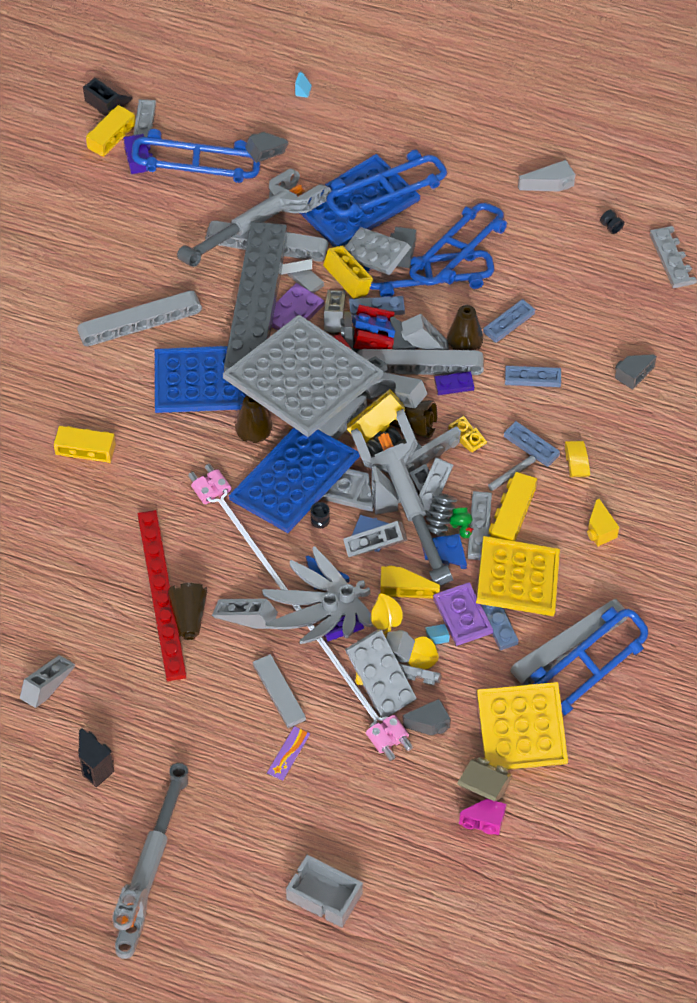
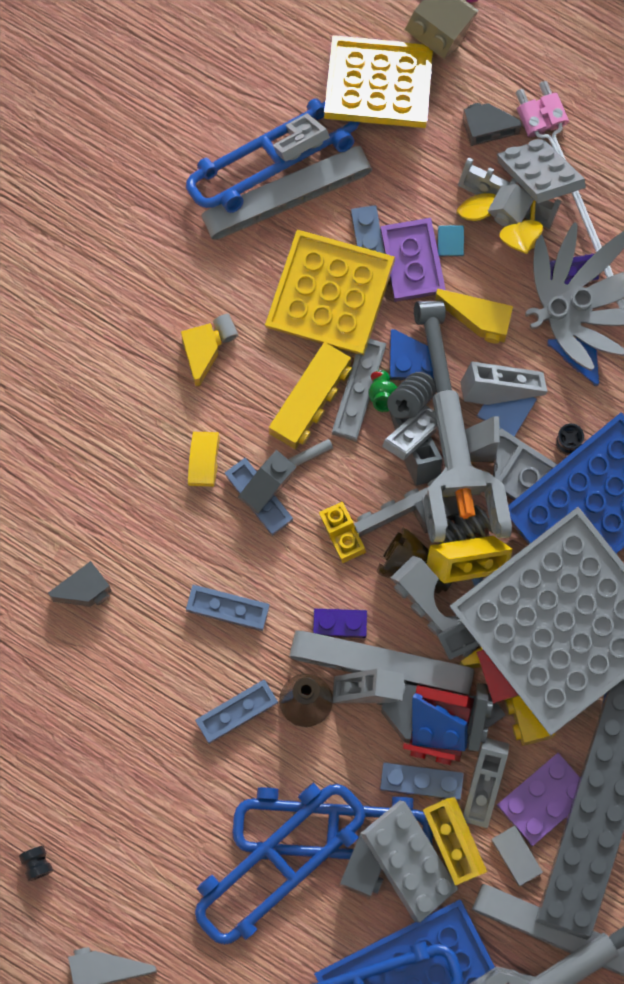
camera: 170 degrees left, 20 degrees up
(296, 266) = (527, 872): white sticker -> none
(527, 444) = (267, 482): none -> dark grey slope
(566, 666) = (304, 134): none -> light grey plate
(587, 544) = (225, 328): none -> light grey hinge

